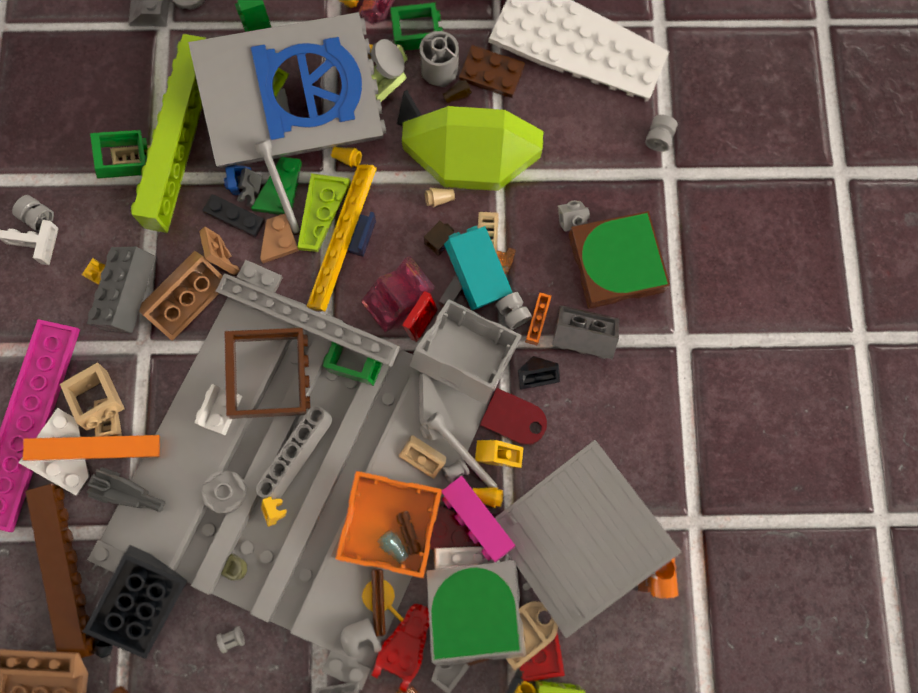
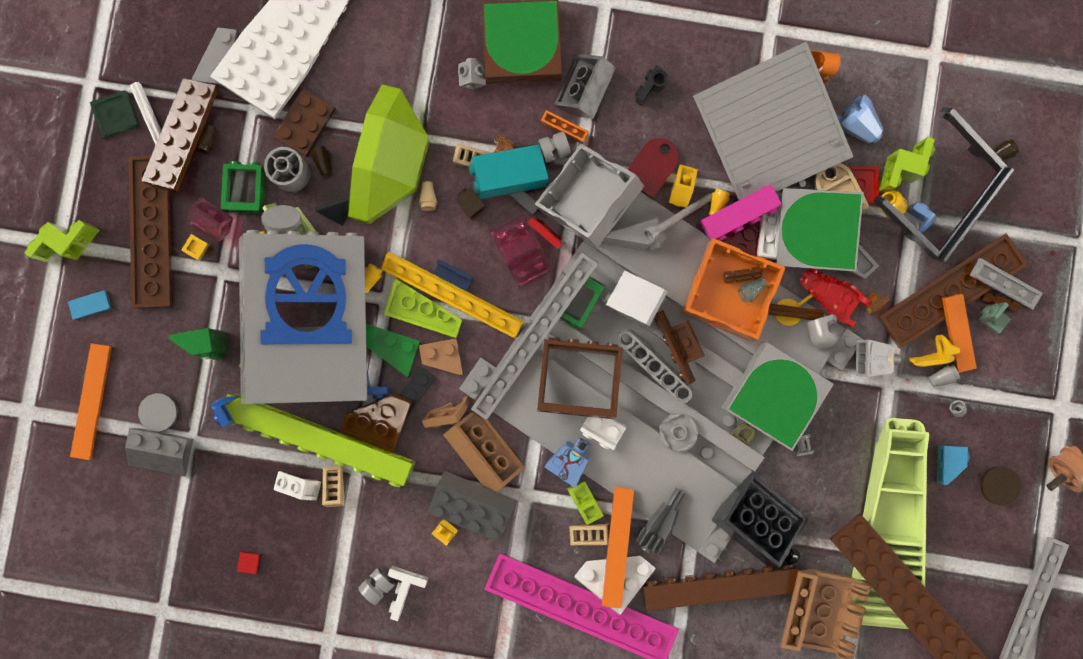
camera: 75 degrees left, 10 degrees up
(49, 94) = (248, 562): none -> red tile
(84, 381) = (551, 549): tan window -> none
(115, 139) = (332, 514): green window -> none
(127, 118) = (297, 487): none -> white bracket
(141, 409) = (585, 502): none -> lime slope
(180, 383) = (569, 461): none -> medium blue torso
(183, 33) = (221, 412): none -> blue plate
(199, 186) = (378, 422): none -> reddish brown plate
(250, 185) = (383, 374): dark grey plate -> none
(264, 149) = (360, 349): light grey piece -> none
(270, 512) = (704, 393): yellow tile -> none
(276, 595) = (777, 395): none -> green tile
(320, 476) = (682, 343): none -> reddish brown bracket
(361, 417) = (635, 298): none -> slope
(423, 456) = (675, 252): tan slope -> none
(455, 471) = (692, 226): light grey bush -> none
(538, 373) = (614, 137): black slope -> none
(593, 394) = (643, 91): none -> black plate
(611, 643) = (861, 120): none -> light blue cone

